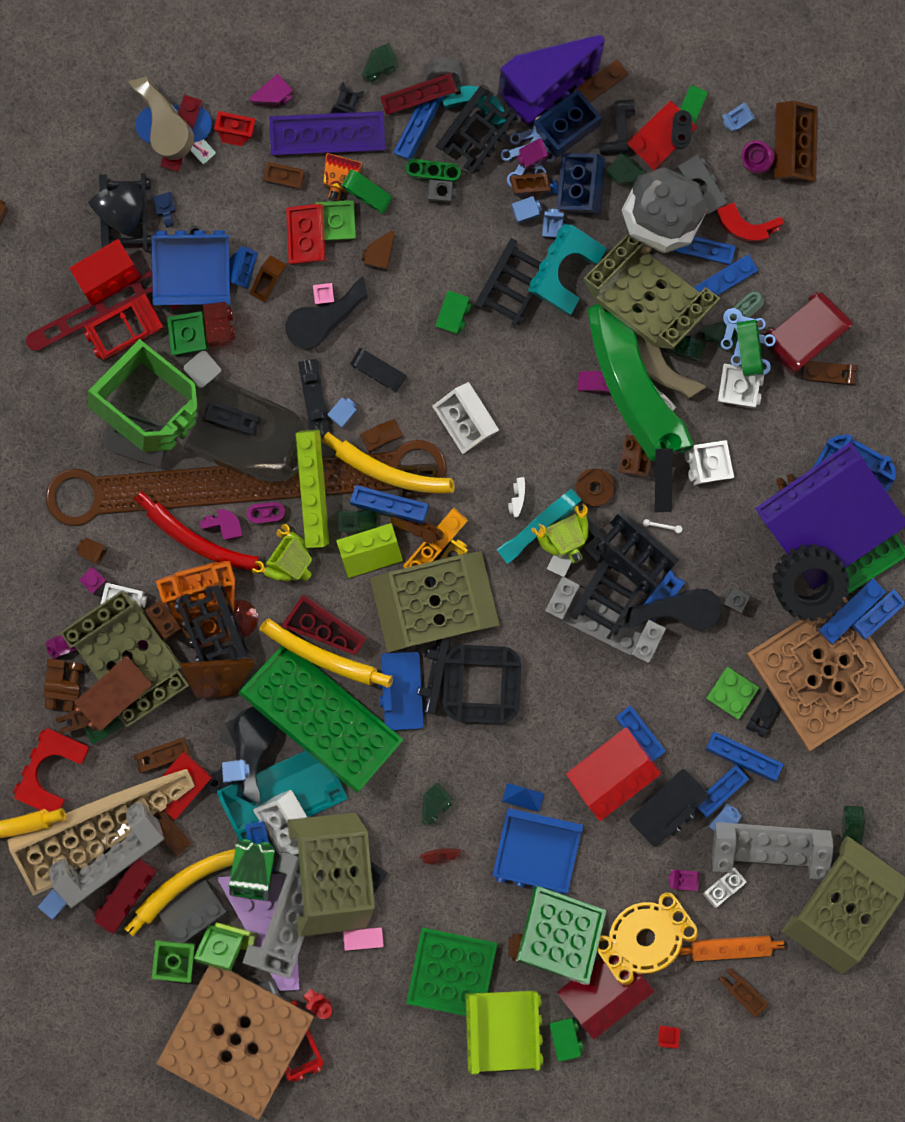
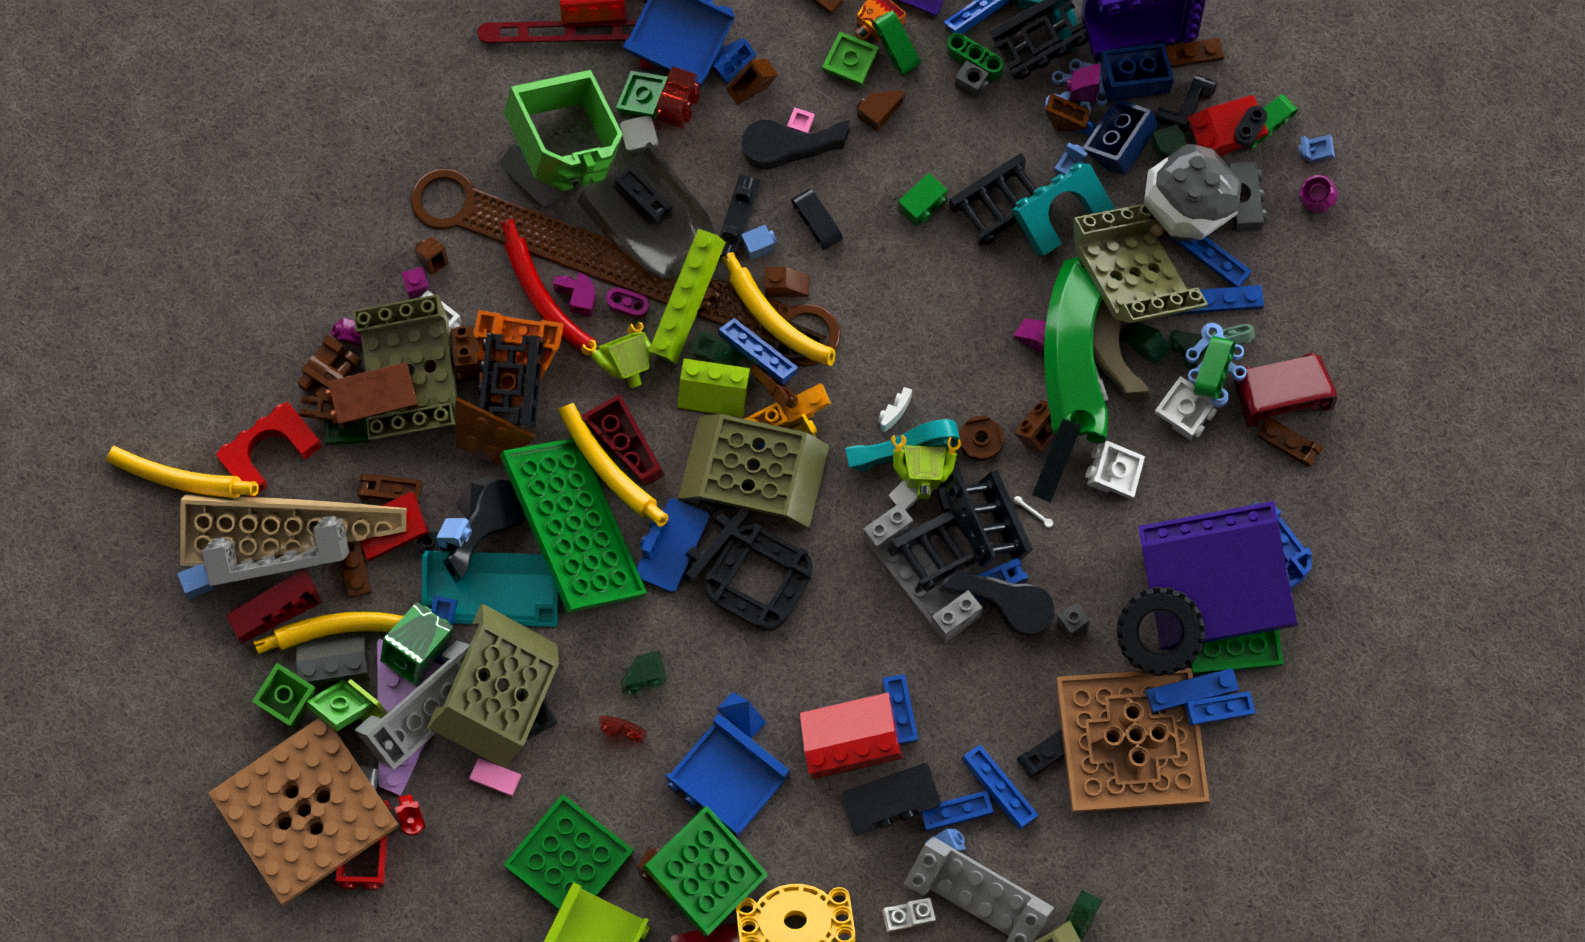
camera: 35 degrees right, 15 degrees down
(145, 315) = (610, 57): red door -> none
(249, 616) = (553, 398): clear red dish -> none
(275, 814) = (469, 601): white slope -> none
(305, 234) = (813, 56): red tile -> none
(465, 417) = (882, 306): white slope -> none
(526, 209) = (1051, 136): medium blue brick -> none
(684, 880) = (868, 883): magenta bracket -> none
(732, 693) = (1021, 716): bright green plate -> none
(742, 230) = (1270, 261): red arch -> none
(795, 141) = (1366, 198): reddish brown slope -> none

